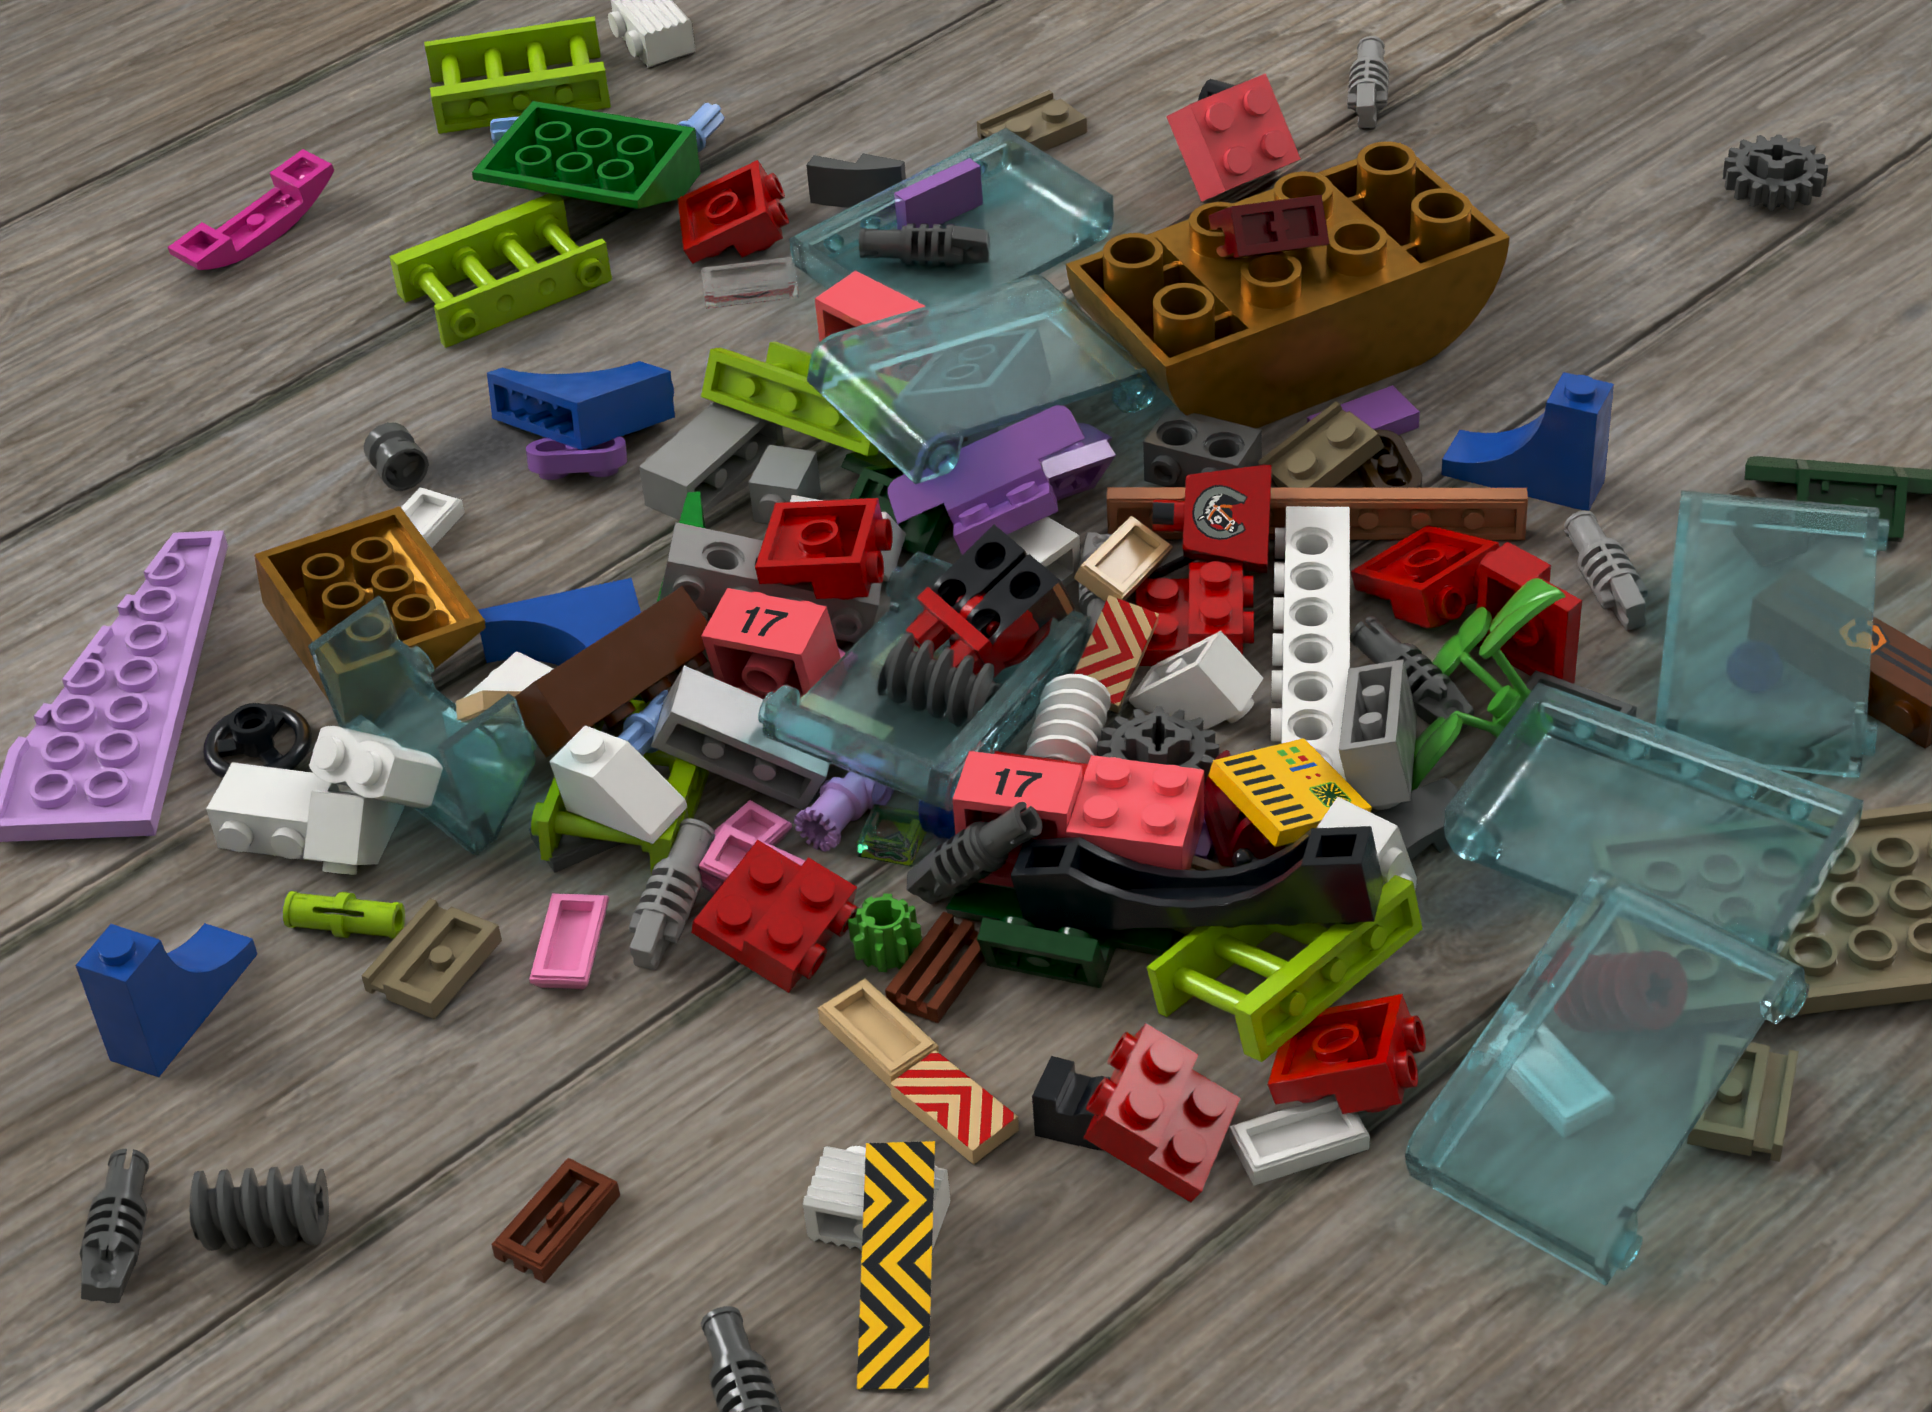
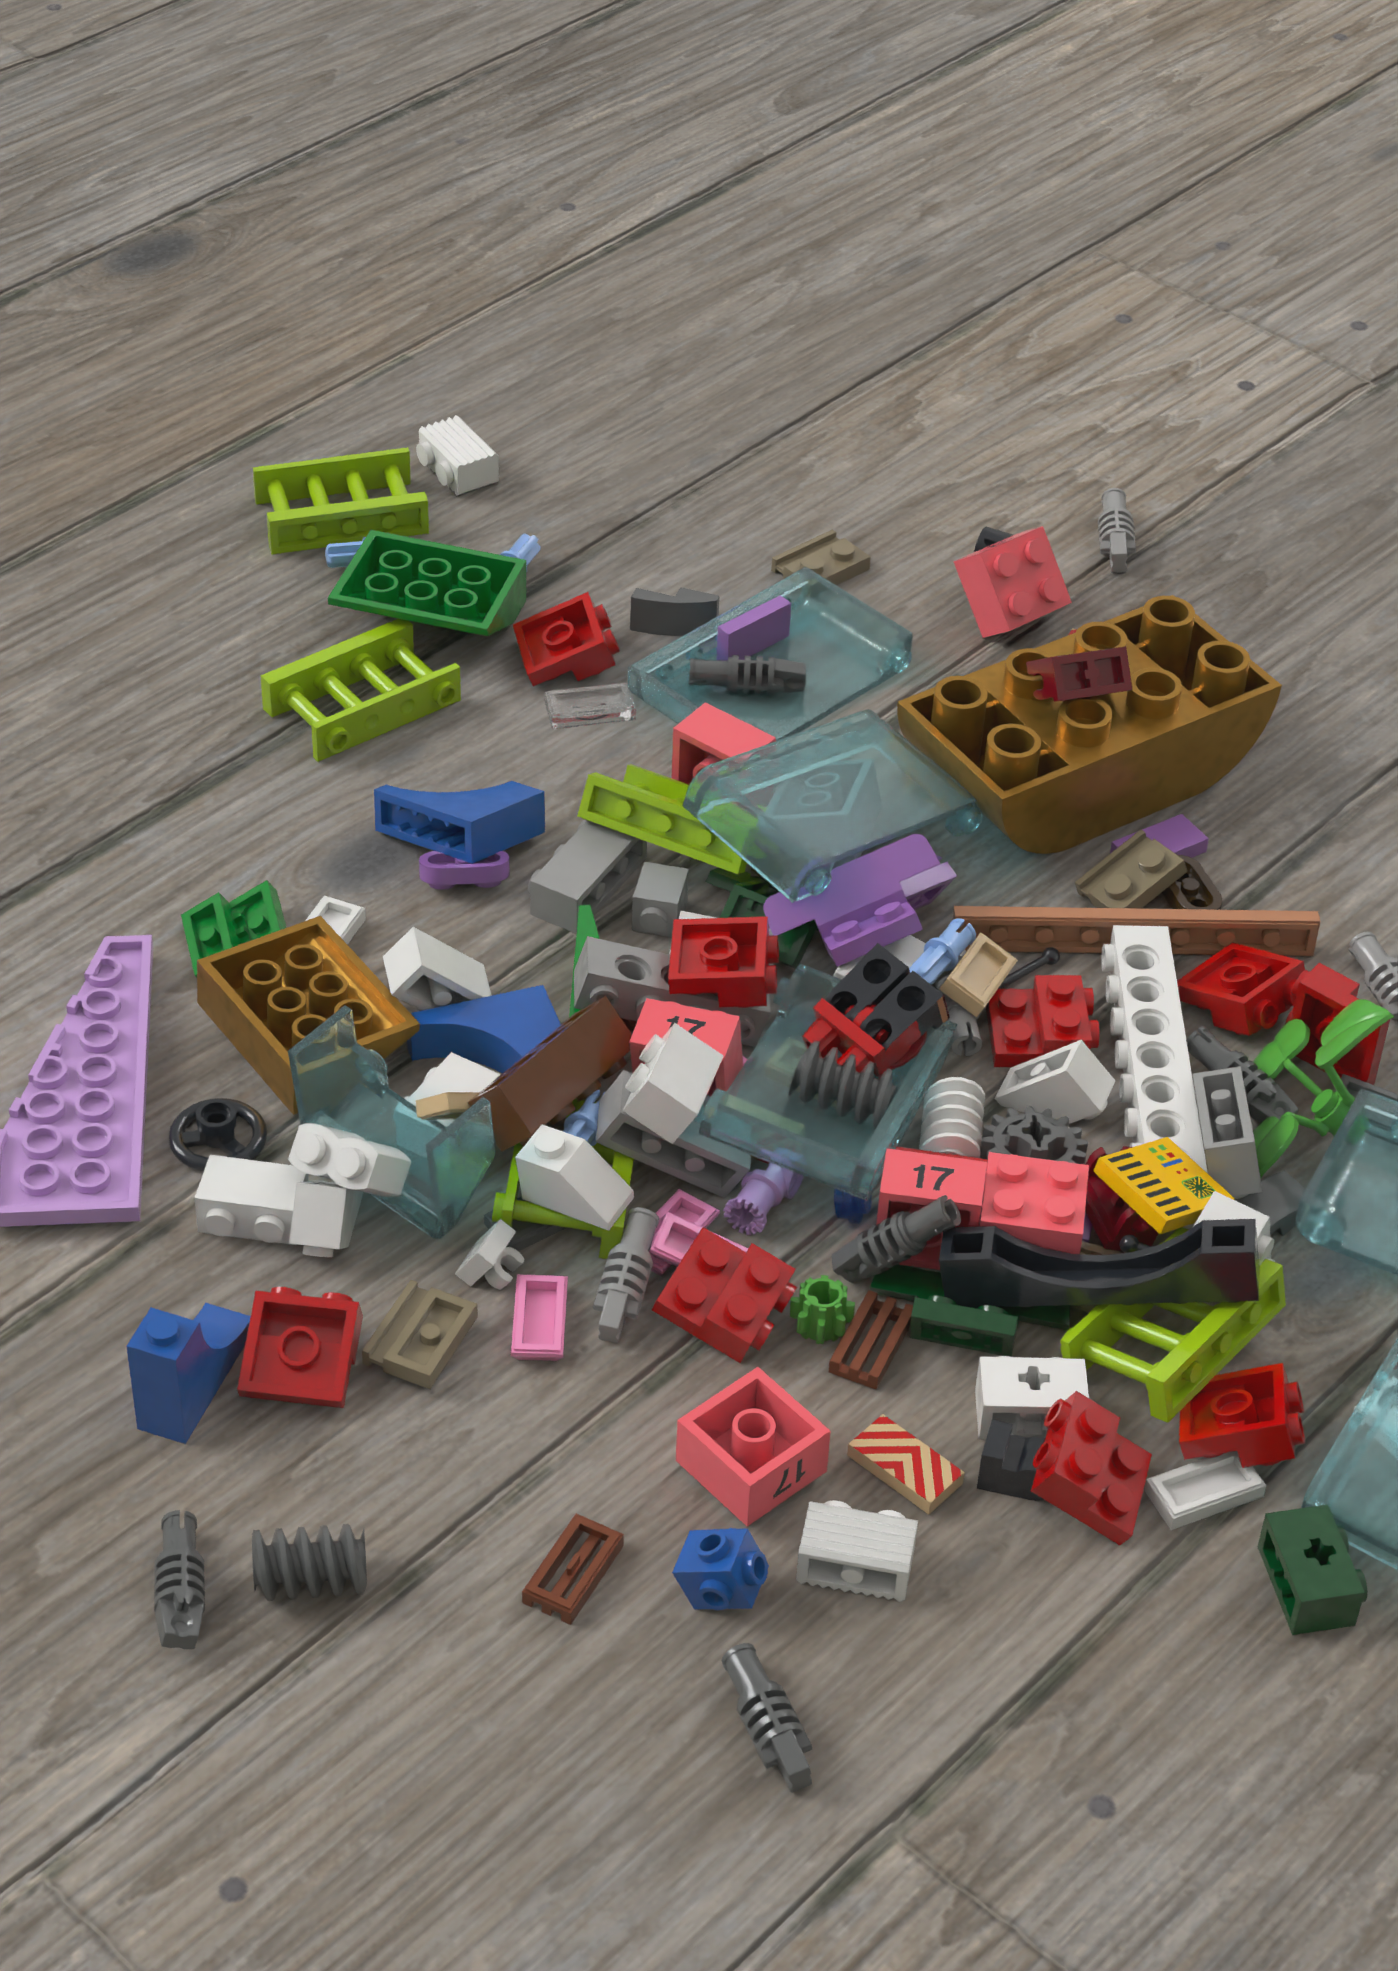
camera: 10 degrees left, 0 degrees up
(295, 189) = (125, 636): dark pink slope -> none
(295, 971) = (300, 1347): none -> red plate
(306, 514) = (224, 924): none -> green slope
(310, 910) = (367, 1294): lime pin -> none
(396, 456) = (297, 866): dark grey wheel -> none
(510, 566) = (432, 973): none -> white brick
(523, 871) = (488, 1255): none -> white tile
(714, 1221) = (721, 1569): none -> blue brick
(734, 678) = (671, 1082): none -> white brick
(774, 1084) = (752, 1446): none -> coral brick
(875, 1031) = (828, 1397): tan tile -> none
(891, 835) = (808, 1220): clear green tile -> none
(896, 1266) = (887, 1605): sticker -> none
(1081, 538) = (943, 952): none -> light blue axle
(1090, 1020) = (1024, 1390): none -> white brick
(1117, 647) = (984, 1050): tile -> none
(1195, 445) = (1026, 874): dark grey brick -> none
(1222, 516) = (1061, 935): red torso -> none
(1407, 1232) = (1311, 1569): none -> dark green brick
(1554, 456) = (1333, 879): blue arch -> none

